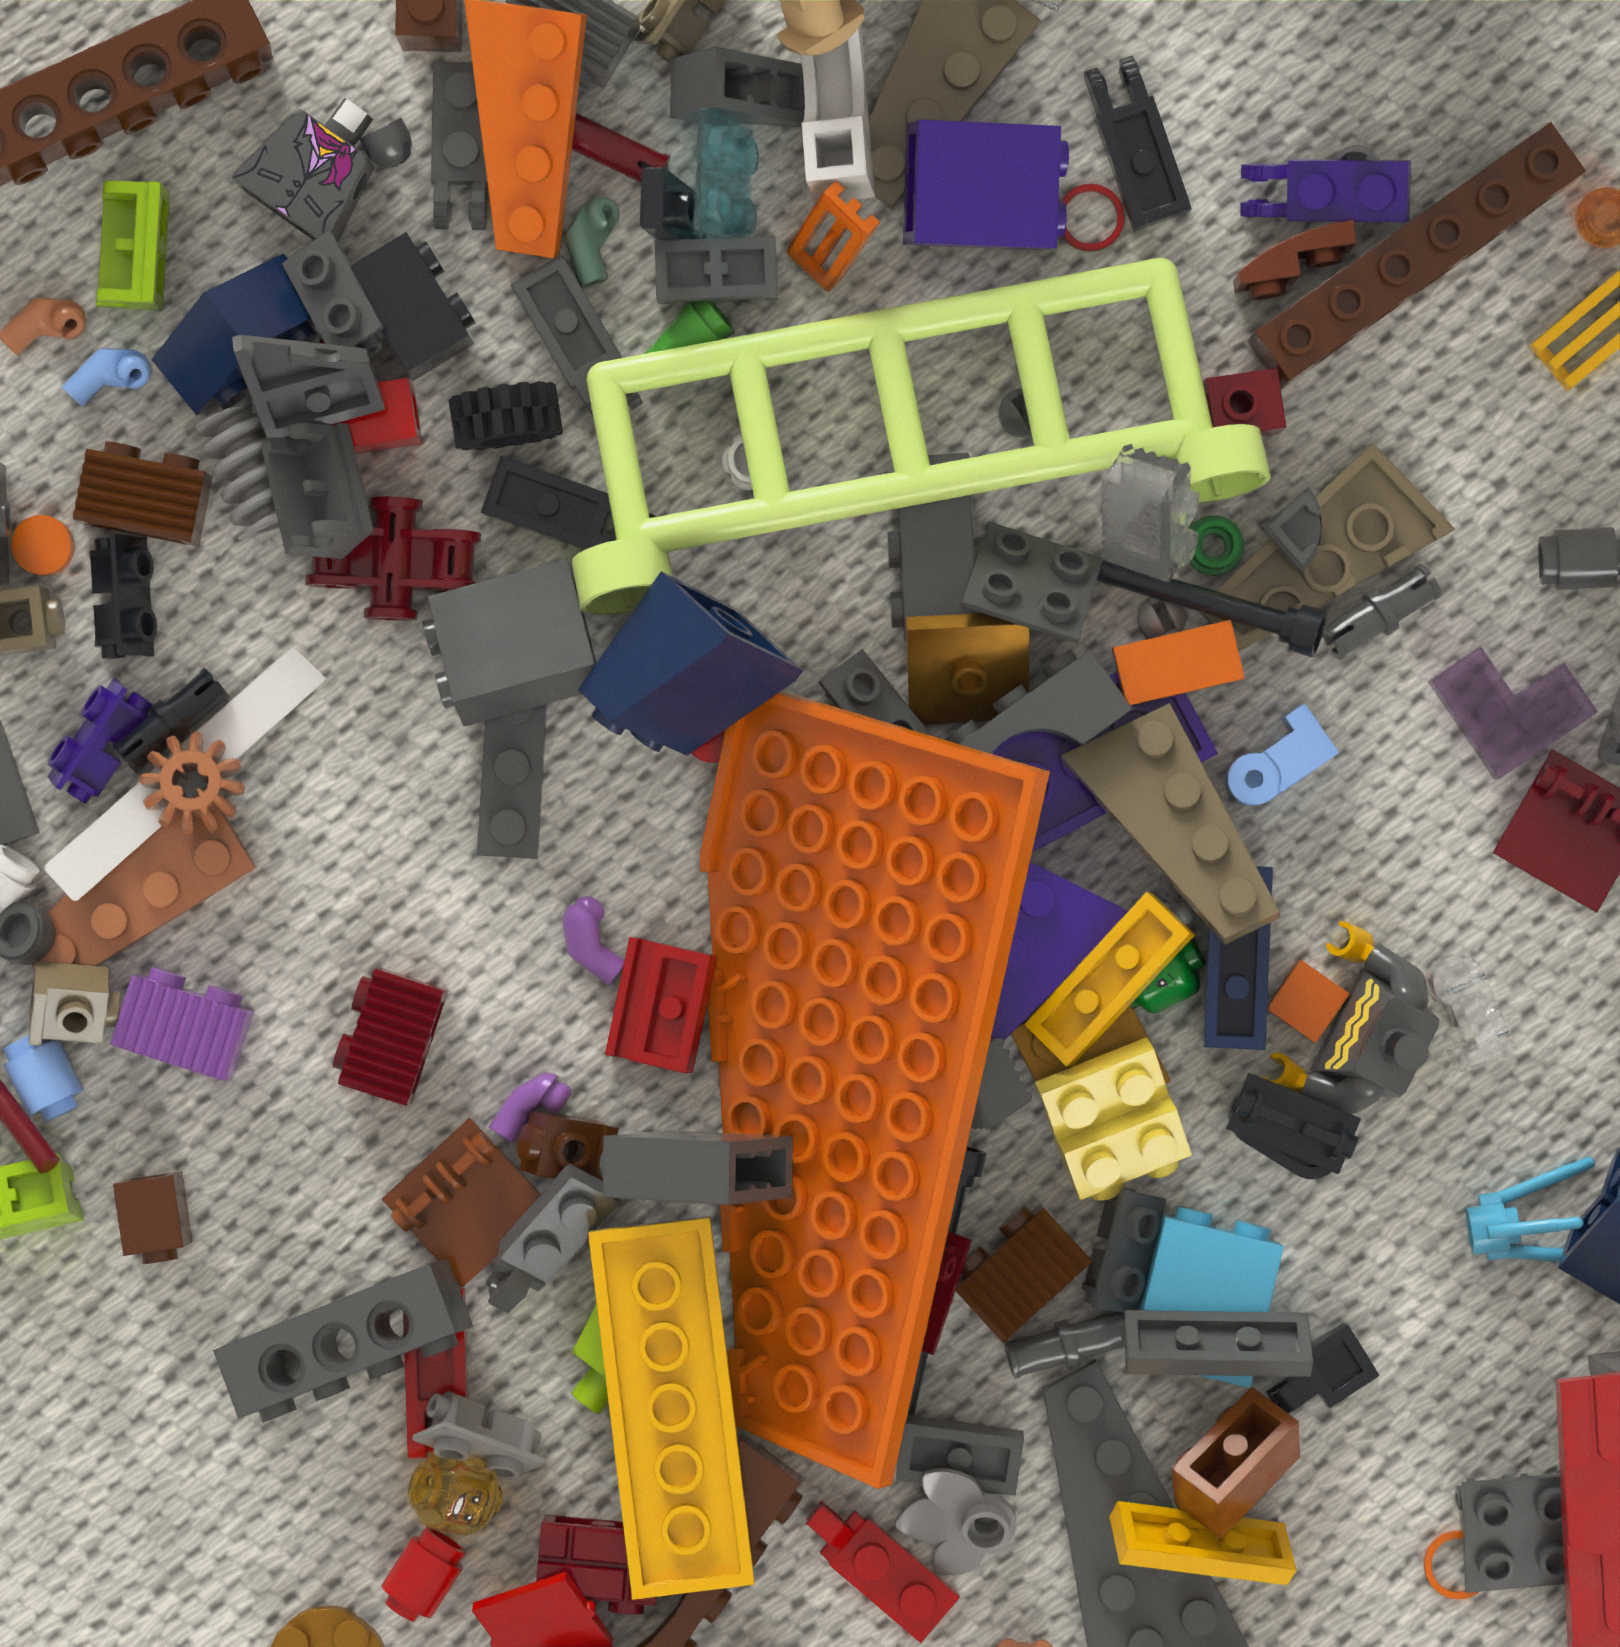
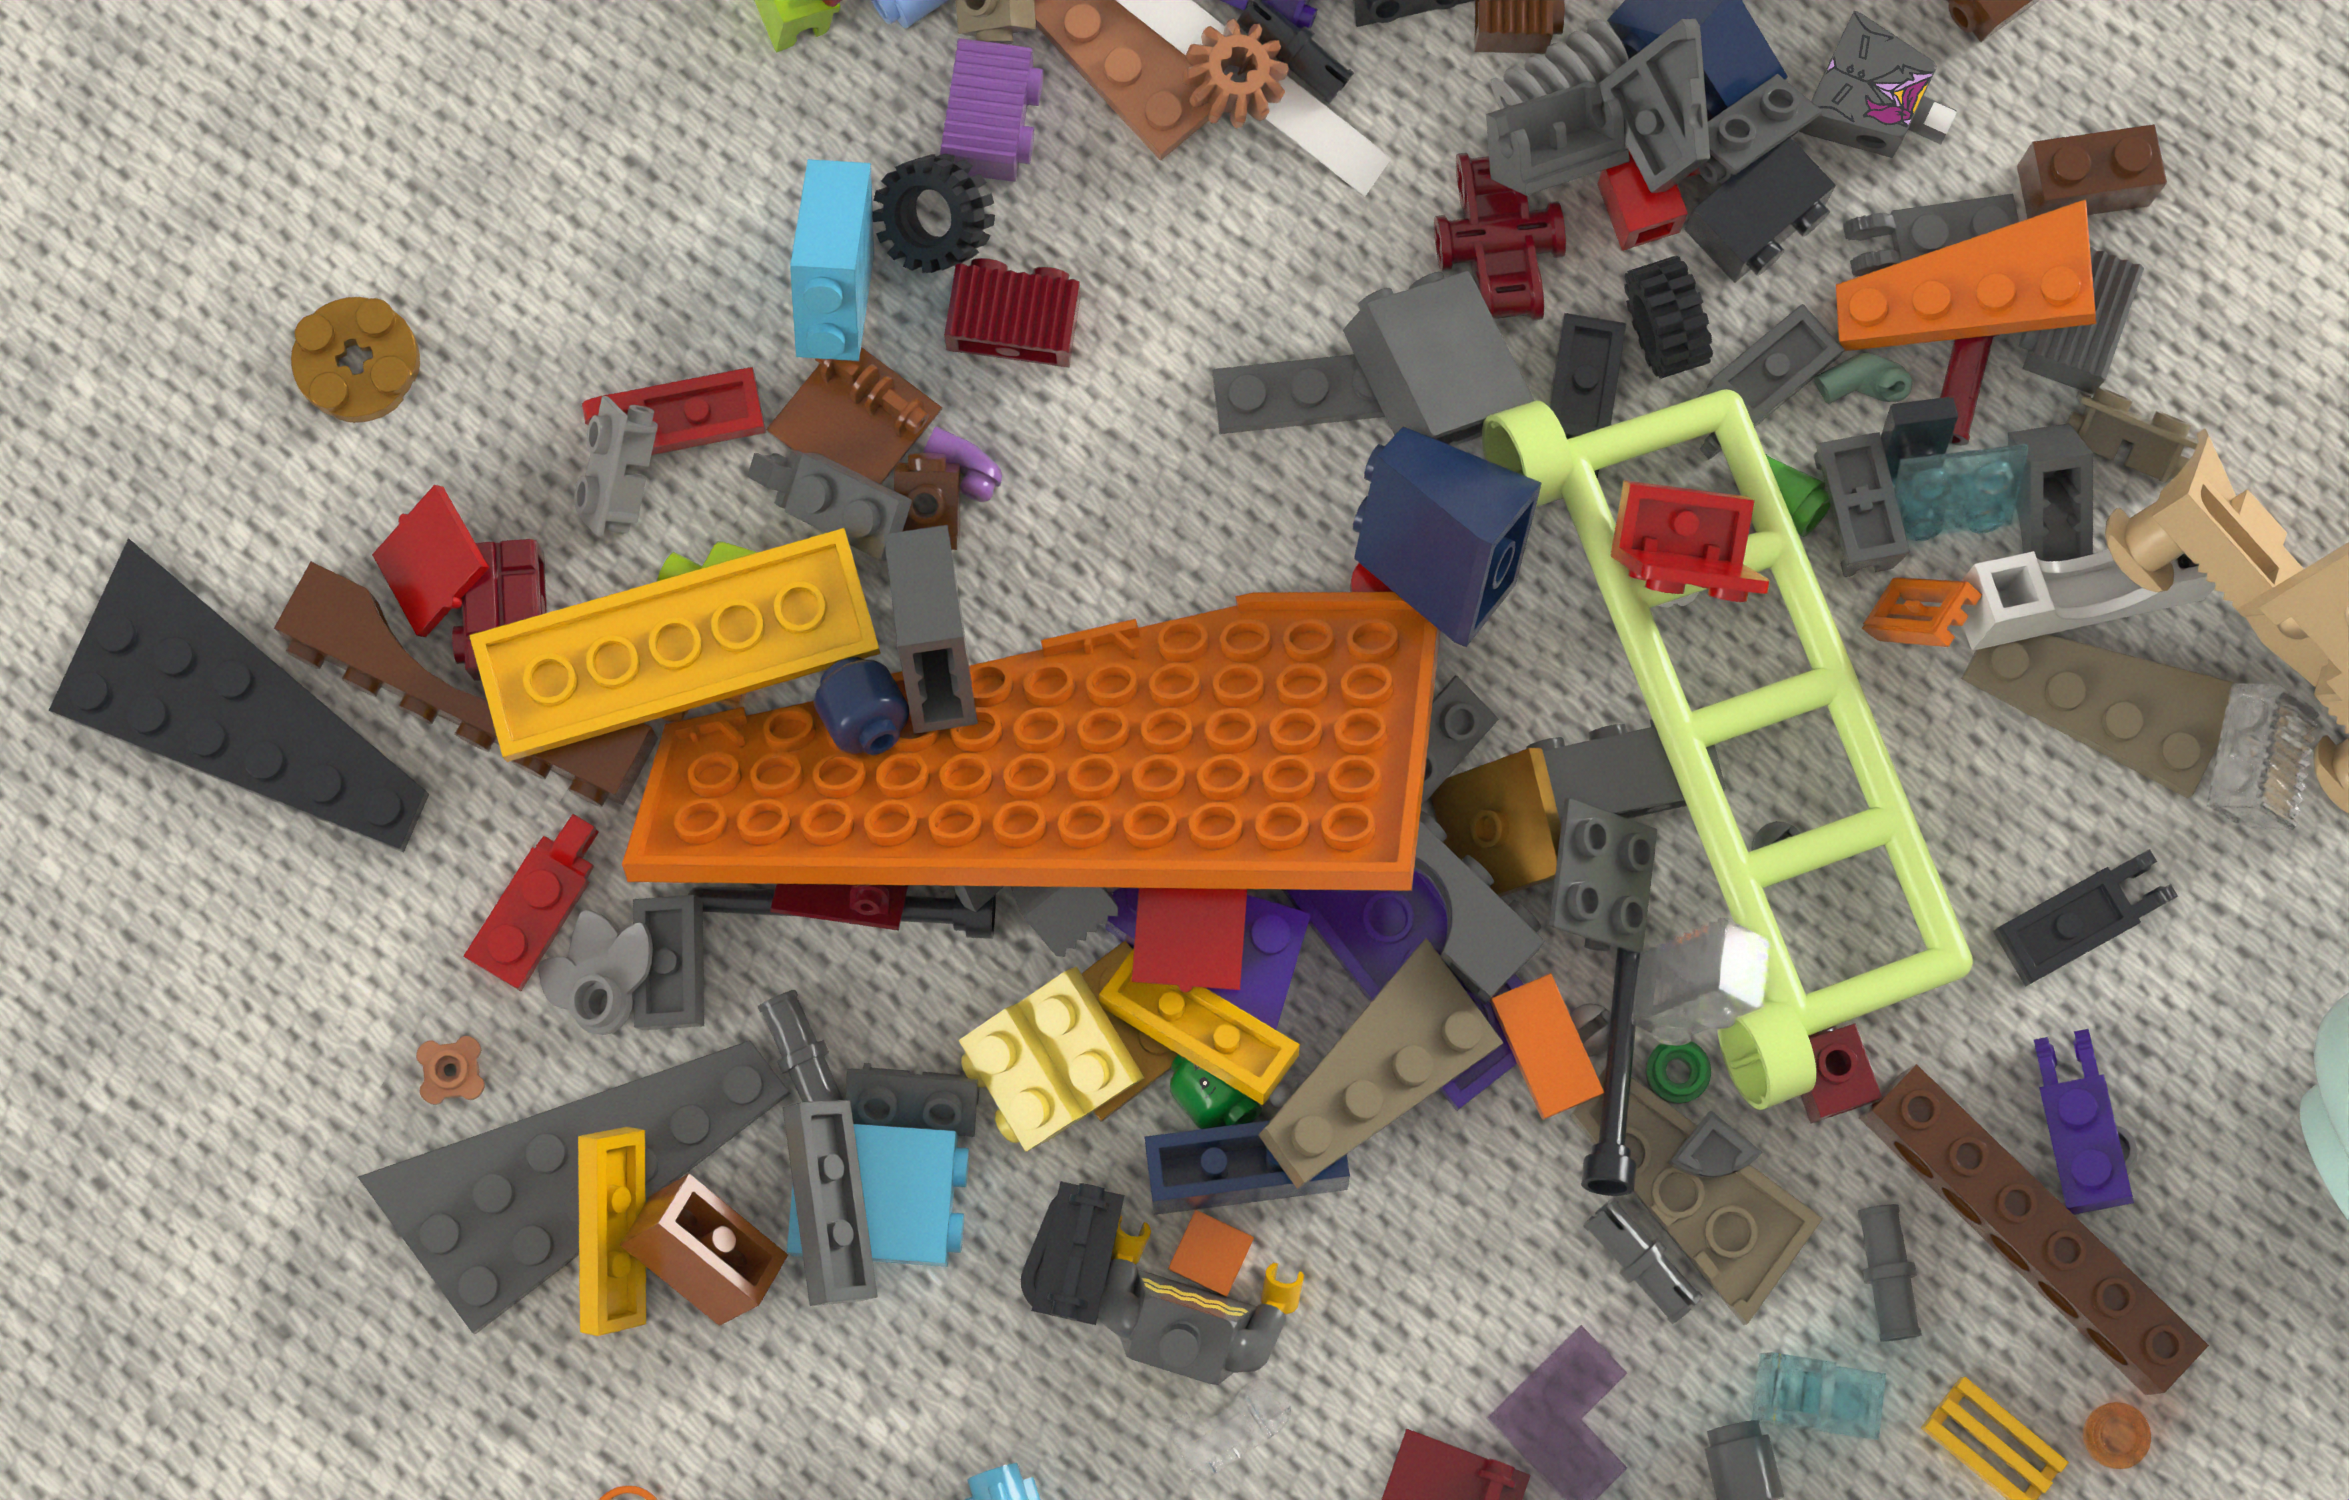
camera: 75 degrees right, 10 degrees down
(153, 1216) = (791, 112): reddish brown brick -> none
(255, 1363) = (658, 234): dark grey brick -> none
(294, 1122) = (901, 217): none -> black tyre
(320, 1202) = (832, 260): none -> medium azure brick
(389, 144) = (1920, 163): dark grey hinge -> none
(423, 1574) = (464, 436): red brick -> none
(454, 1494) = (551, 452): clear yellow head -> none
(583, 939) = (1142, 490): medium lavender arm -> none
(661, 1005) = (1090, 578): red plate -> none
(747, 447) = (1686, 538): none -> red bracket
(760, 1242) = (861, 706): none -> dark blue head
(984, 185) = (2008, 761): dark purple brick -> none
(1020, 1270) = (872, 992): reddish brown brick -> none
(1040, 977) = (1190, 937): none -> red piece
(1120, 217) = (2015, 859): red piece -> none
(1264, 775) = (1444, 1164): light blue leg -> none
(1279, 266) = (1987, 1082): copper slope -> none
(1337, 1372) = (820, 1343): black plate -> none
(1429, 391) = (1889, 1273): none -> dark grey pin
(1532, 481) = (1818, 1396): none -> clear light blue brick

